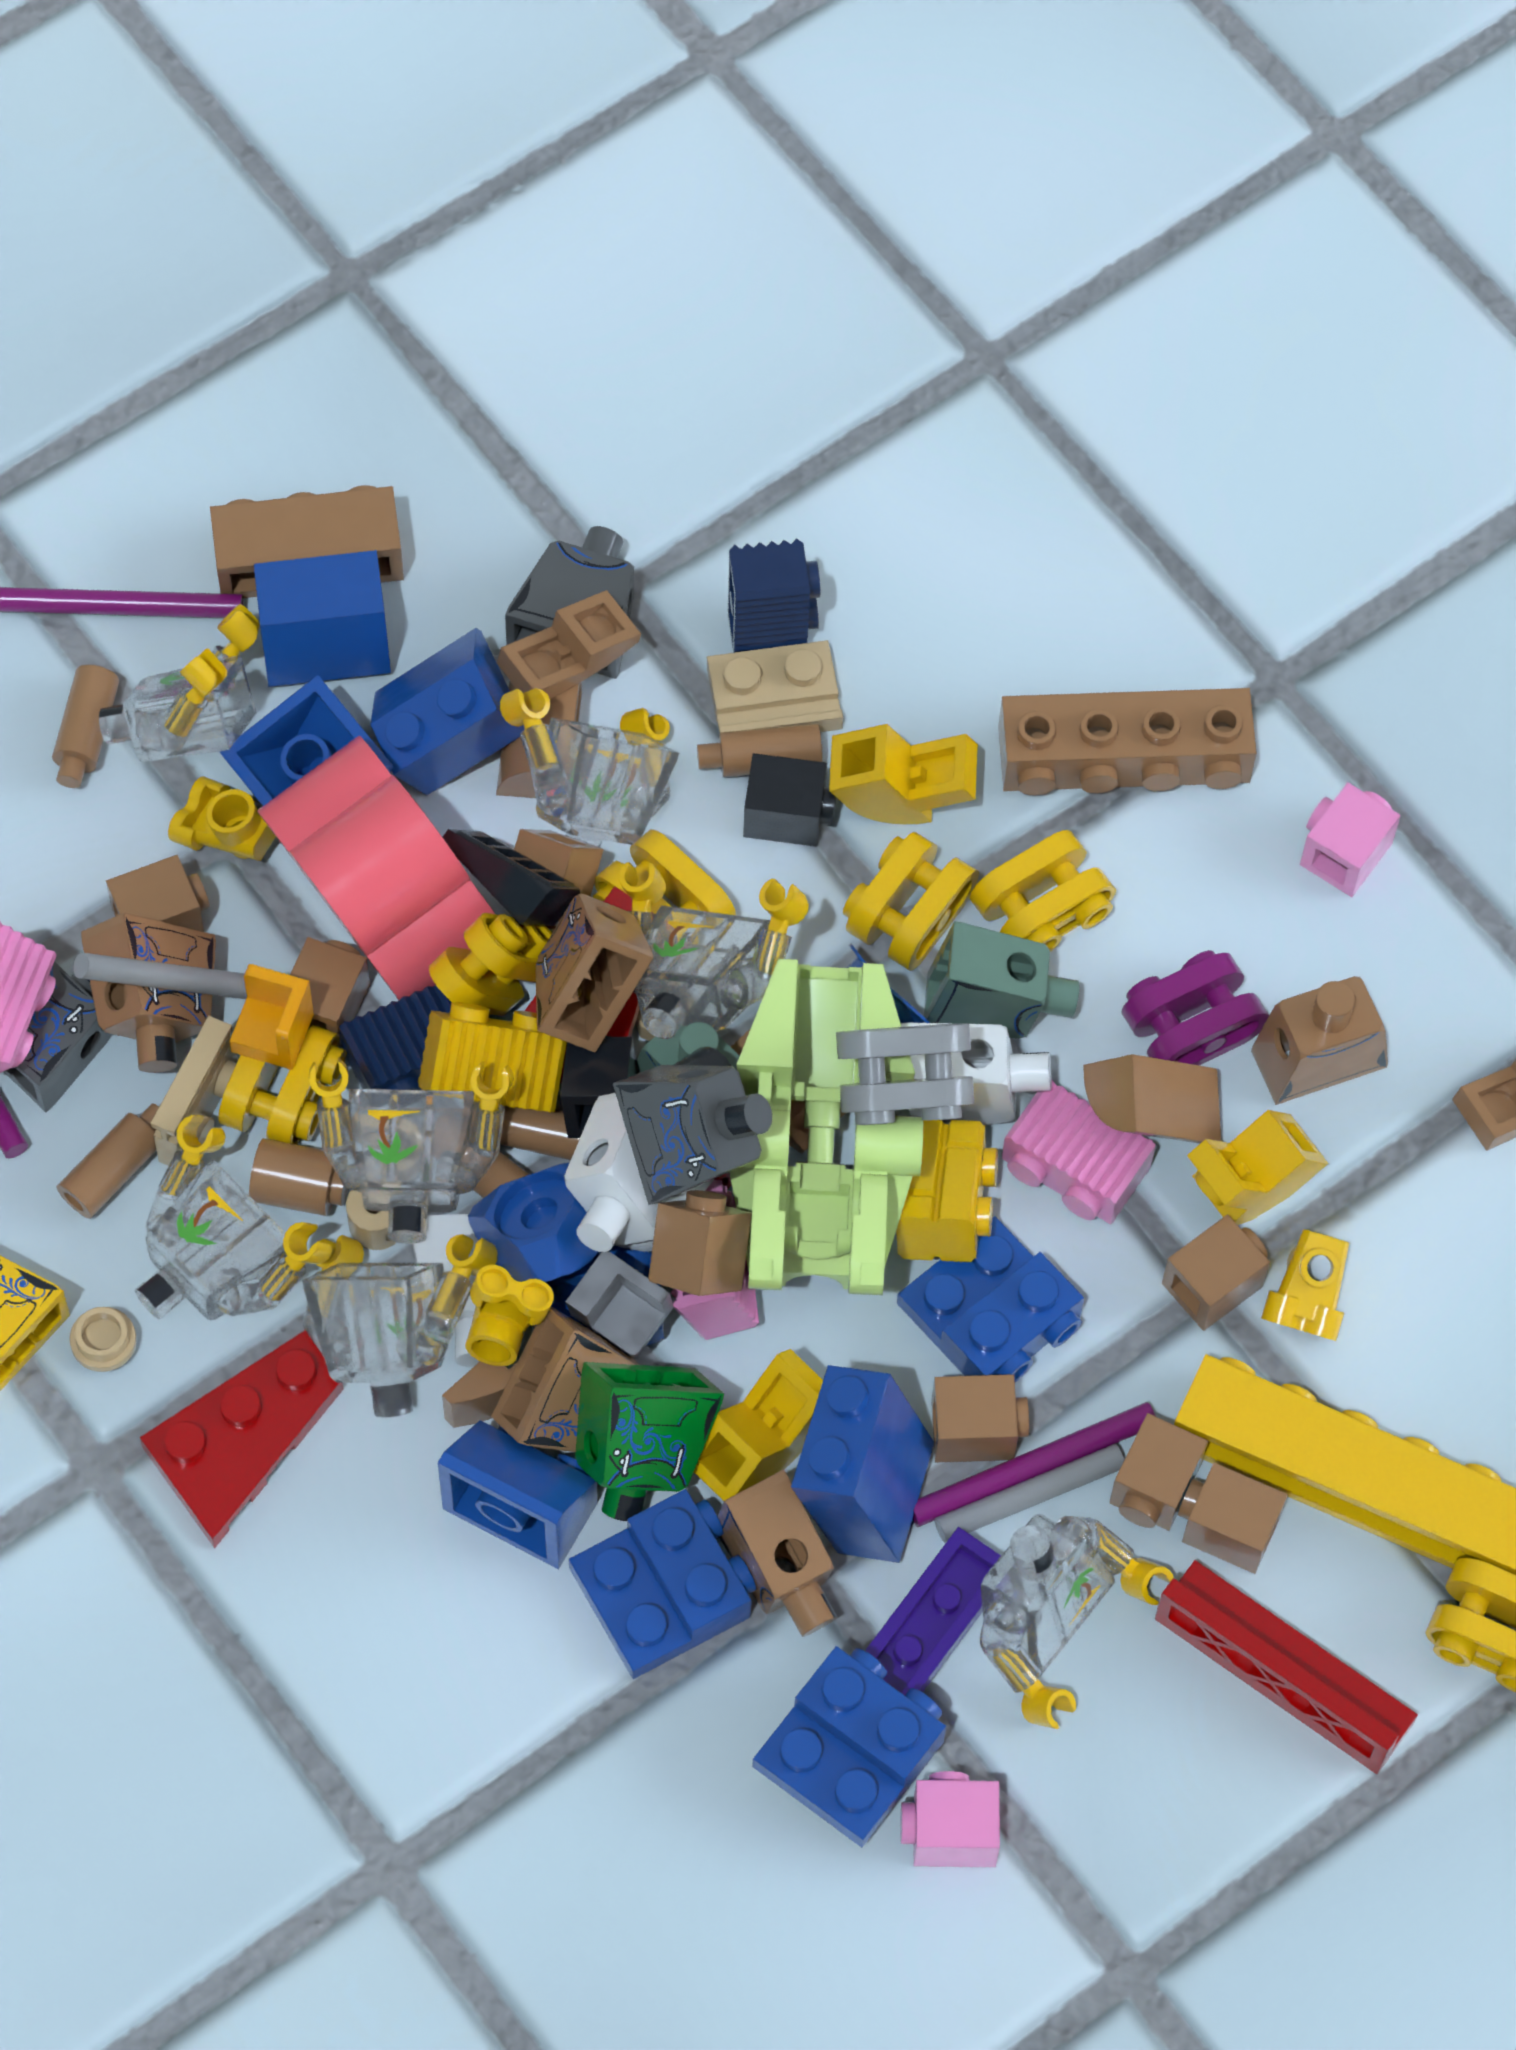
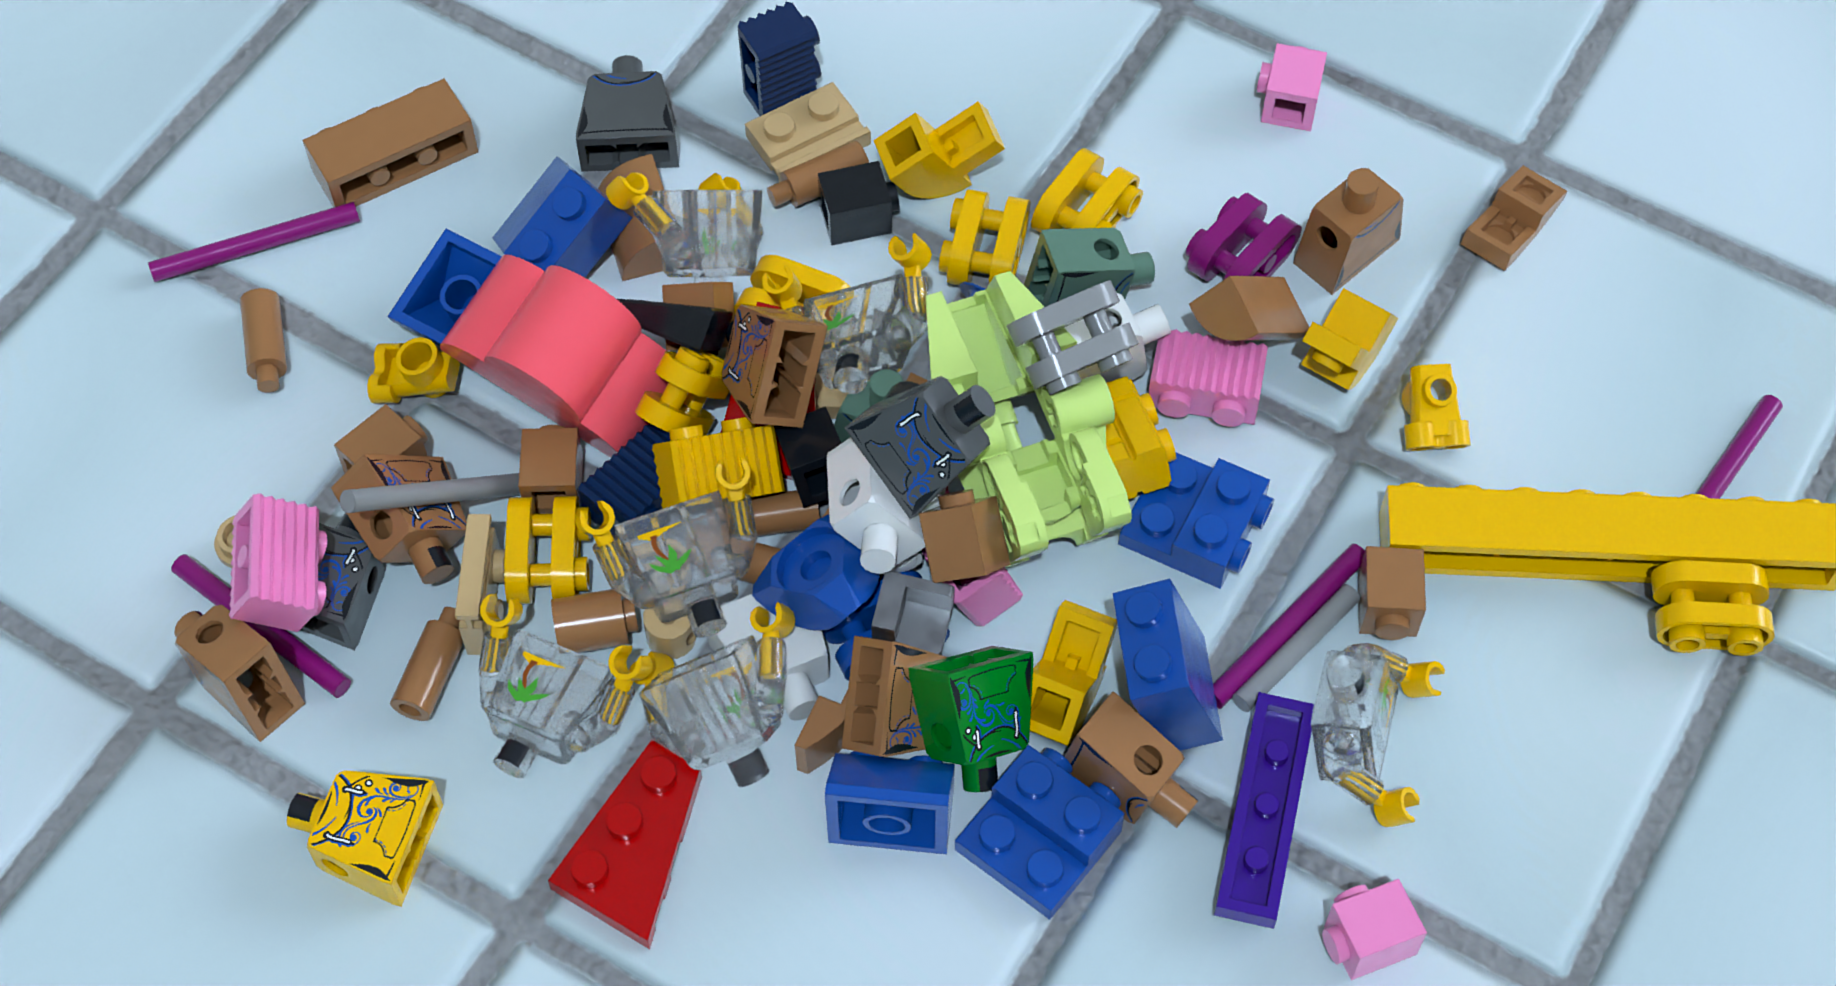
camera: 20 degrees left, 5 degrees down
(102, 1339) = (481, 812): tan plate -> none
(190, 707) = (347, 291): clear torso -> none
(273, 1017) = (522, 494): light orange panel -> none
(322, 618) = (429, 189): blue slope -> none
(503, 1314) = (821, 655): yellow plate -> none
(575, 647) = (643, 140): medium nougat slope -> none
(852, 1743) = (1265, 896): blue plate -> none
(977, 1418) = (1231, 603): medium nougat brick -> none
(1126, 740) = (1092, 74): medium nougat brick -> none
(1216, 1271) = (1357, 426): medium nougat brick -> none
(1231, 1516) = (1467, 604): medium nougat brick -> none
(1285, 1666) = (1565, 705): red fence -> none

